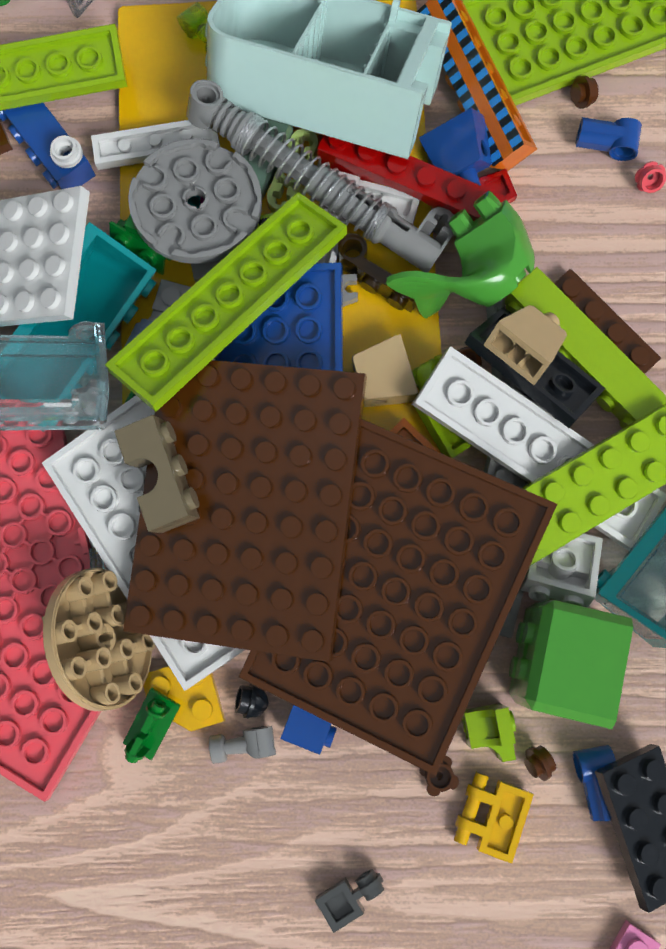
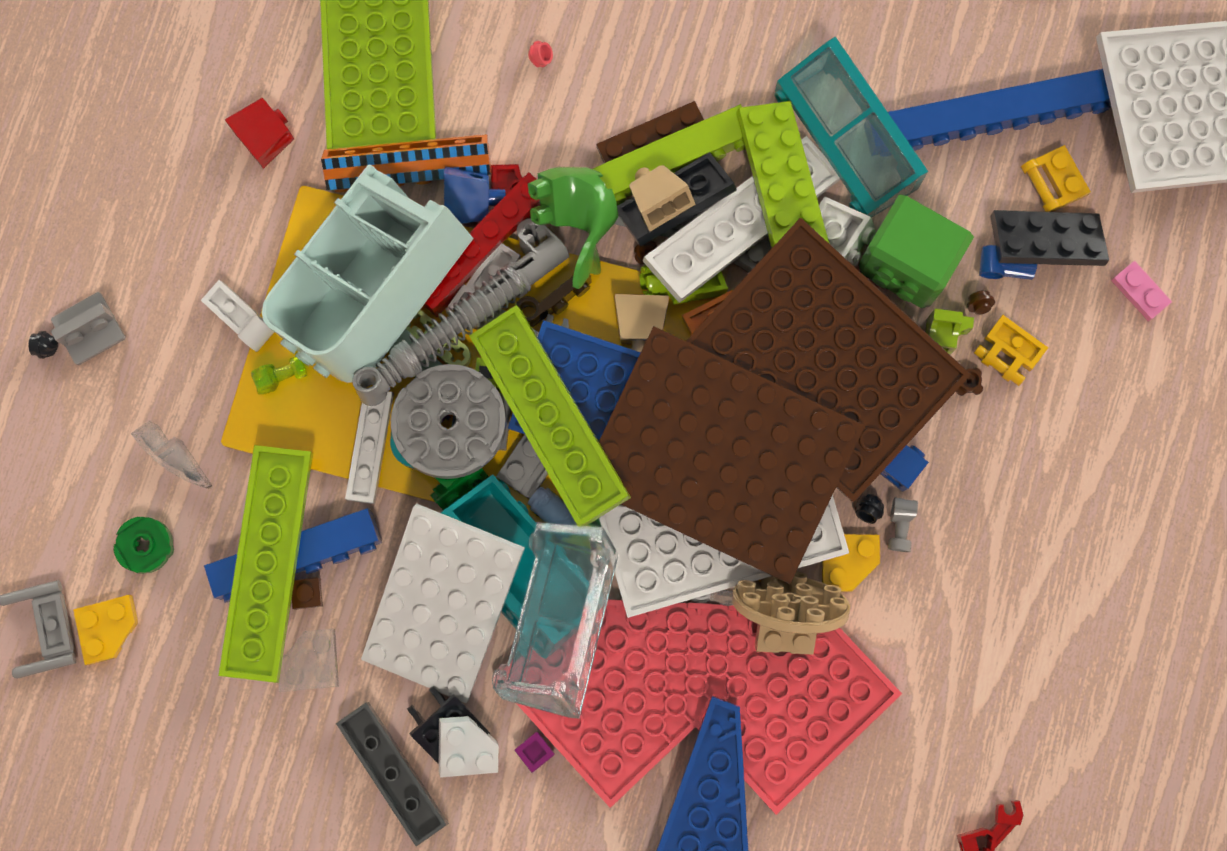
camera: 75 degrees left, 0 degrees up
(63, 144) = (348, 520): white plate -> none
(150, 726) = (866, 593): green hinge -> none
(171, 500) = (654, 509): dark tan arch -> none
(341, 903) = (1041, 485): dark grey plate -> none
(584, 91) = (446, 79): reddish brown plate -> none
(617, 137) = (496, 68): blue piece -> none

